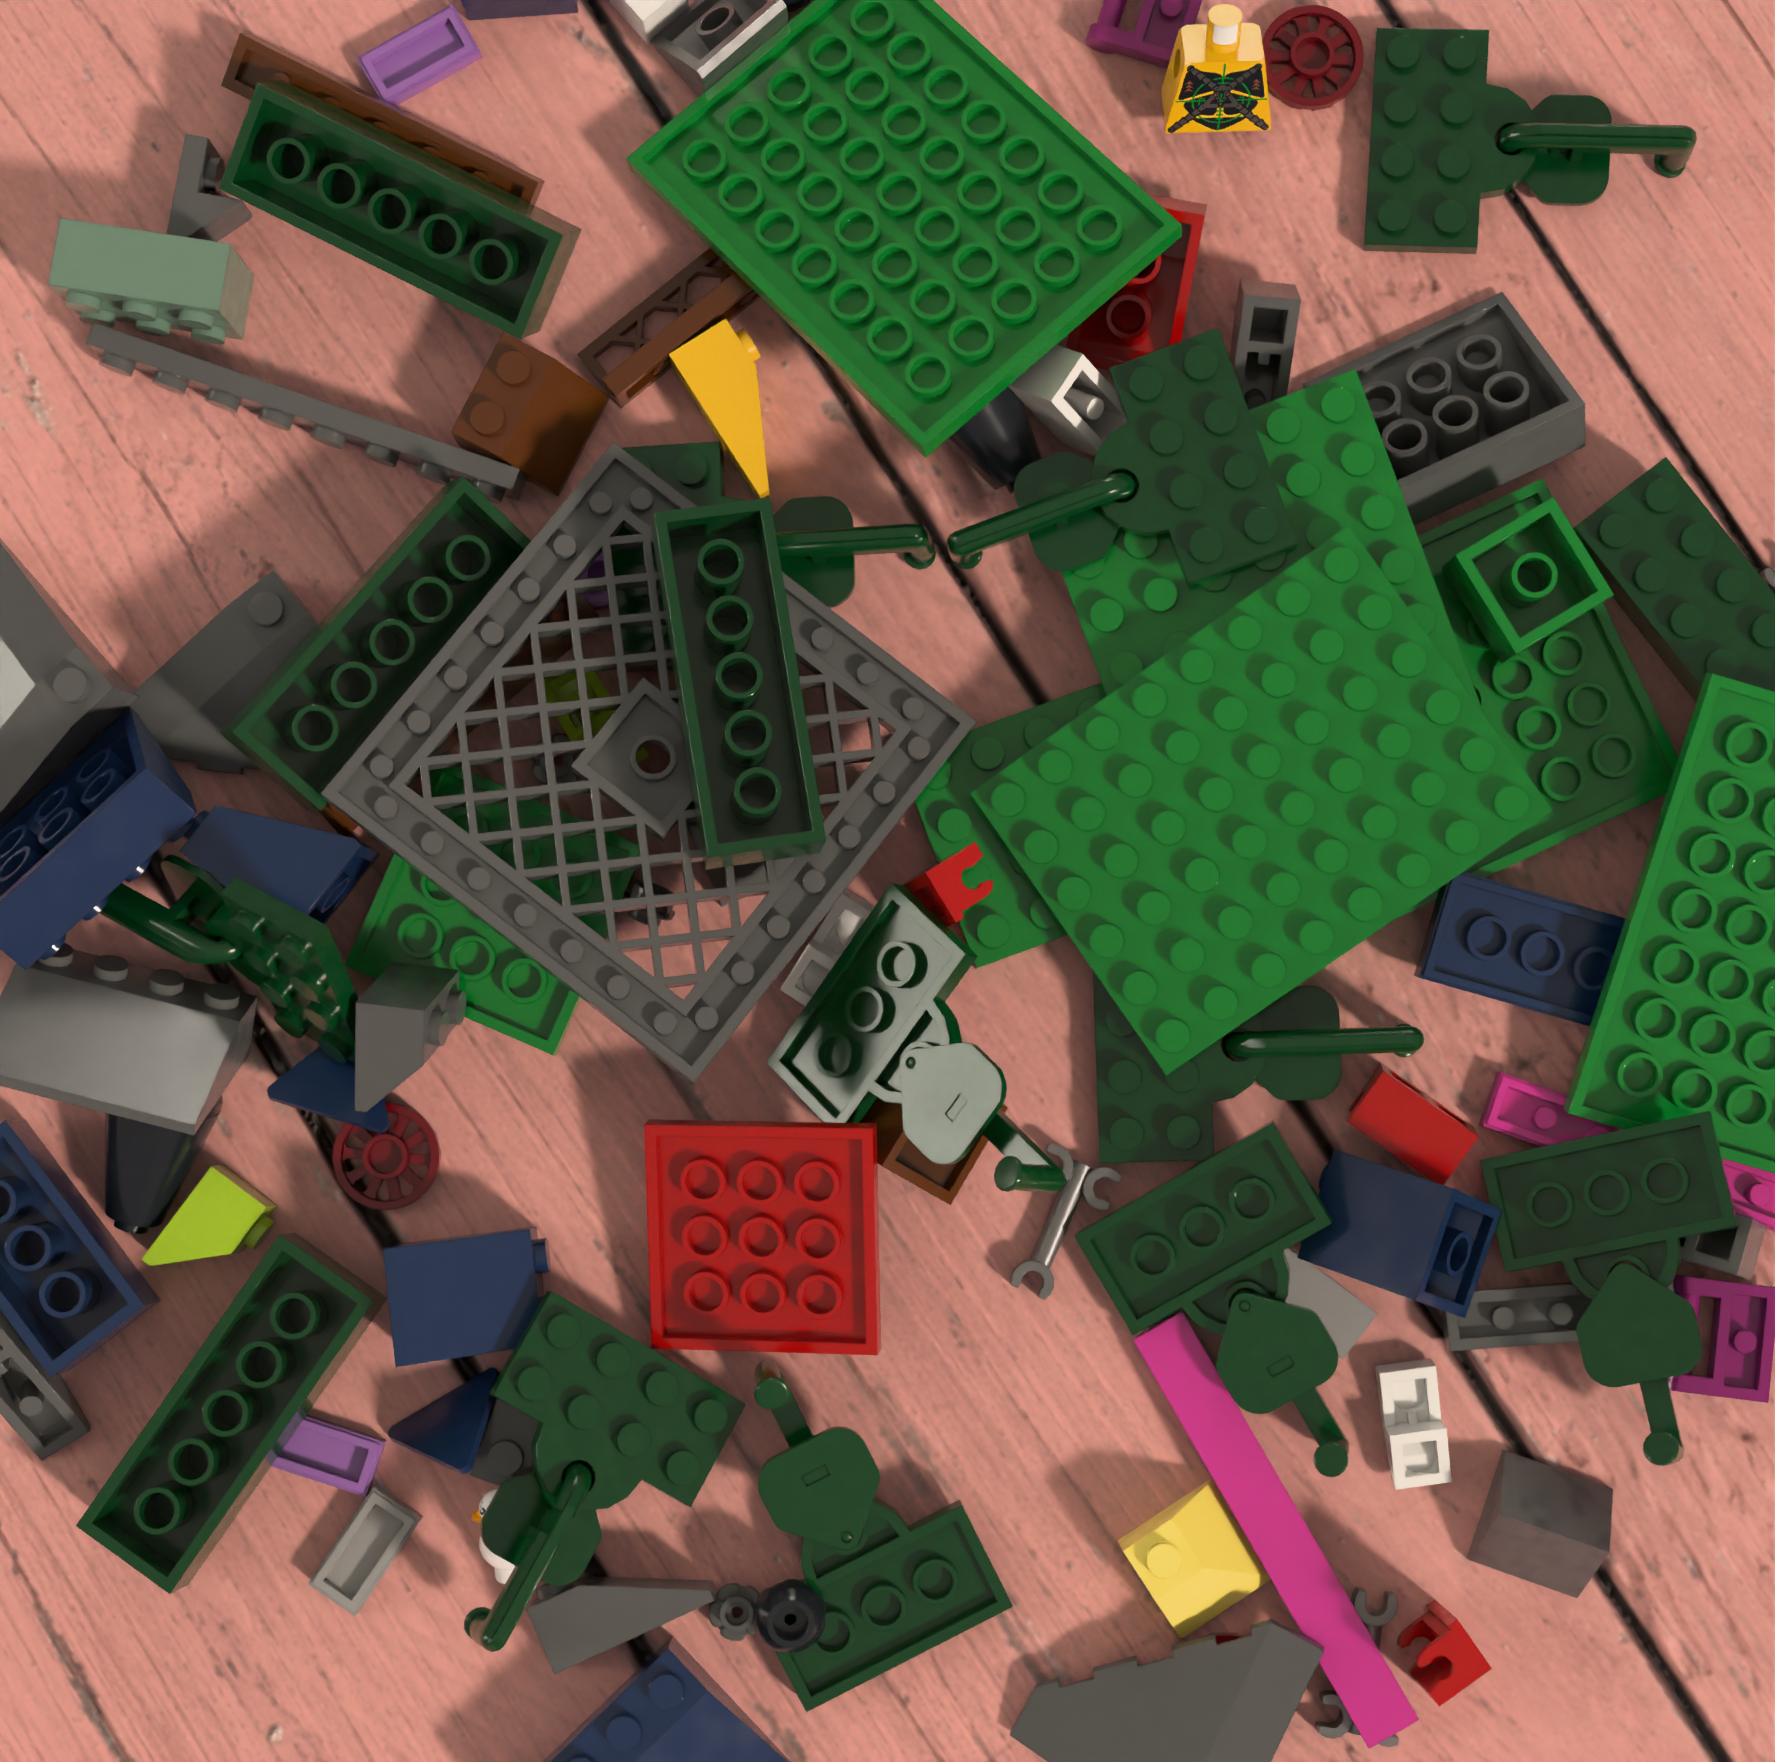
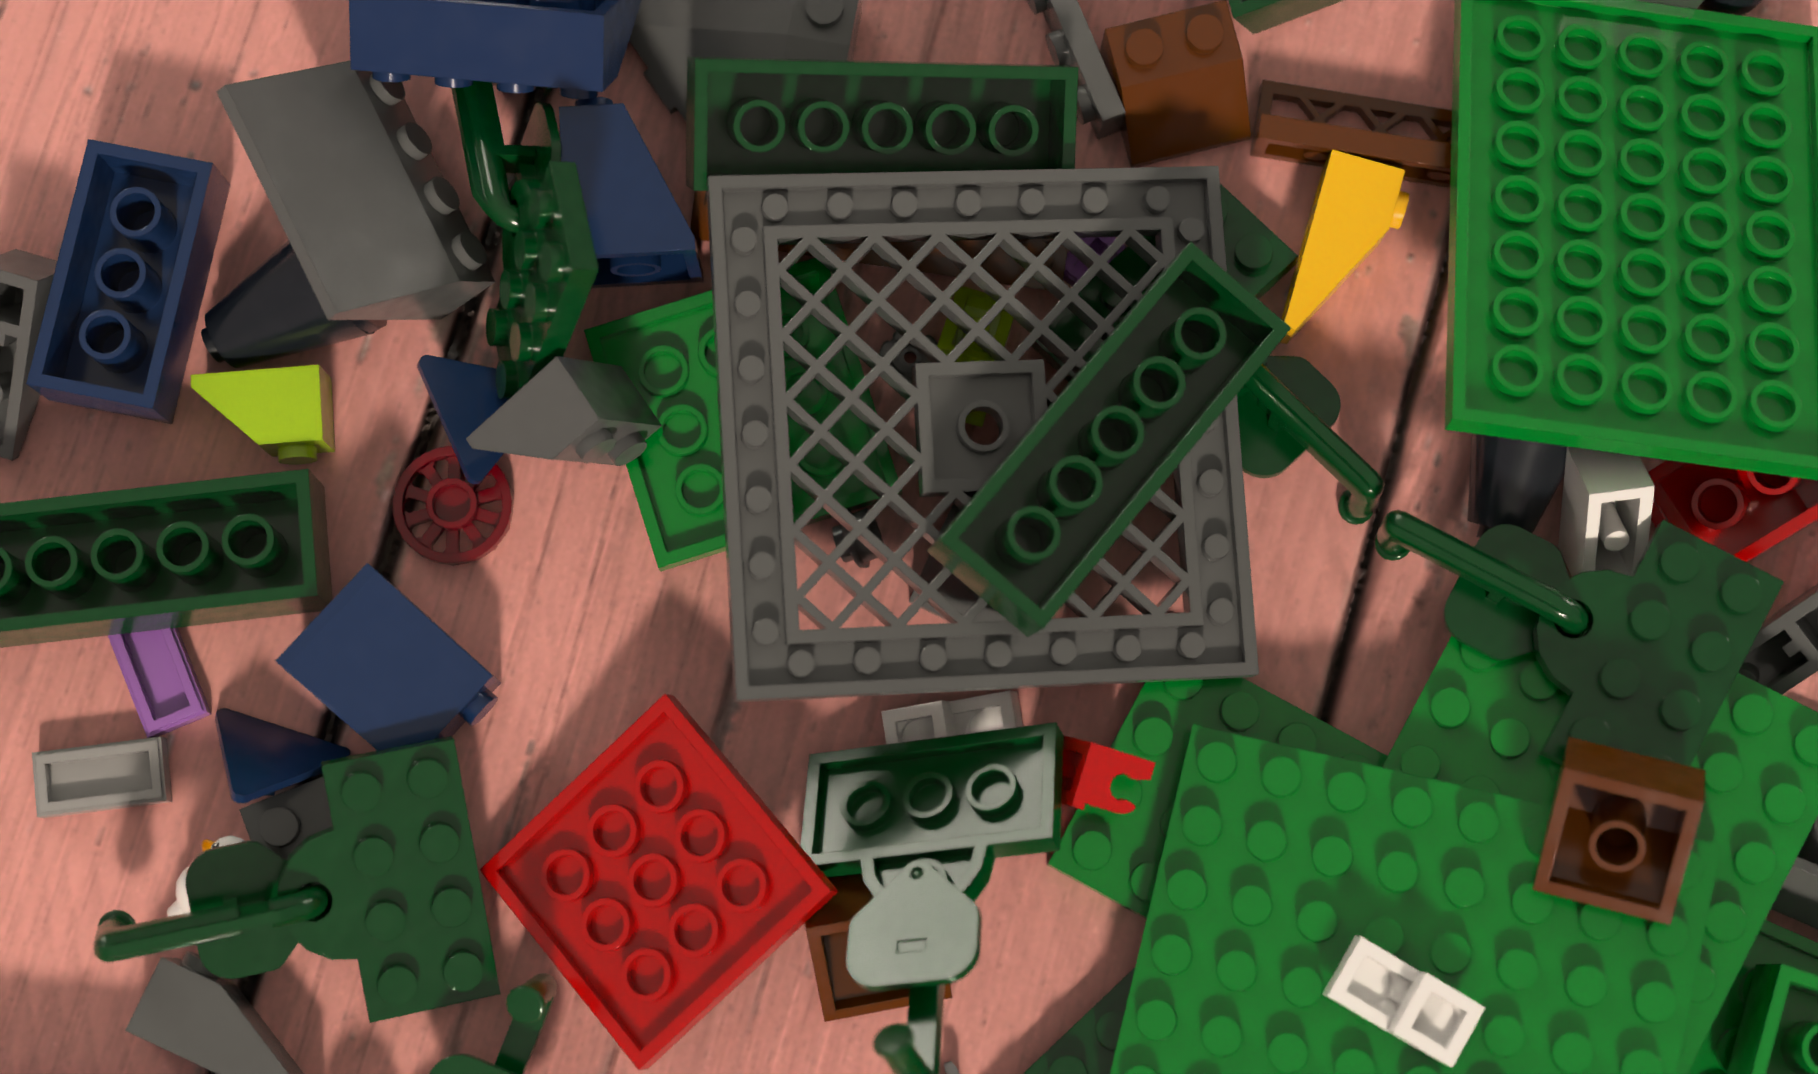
camera: 50 degrees right, 5 degrees down
(1267, 819) = (1404, 1001): none -> white slope
(1282, 583) = (1620, 830): none -> reddish brown slope

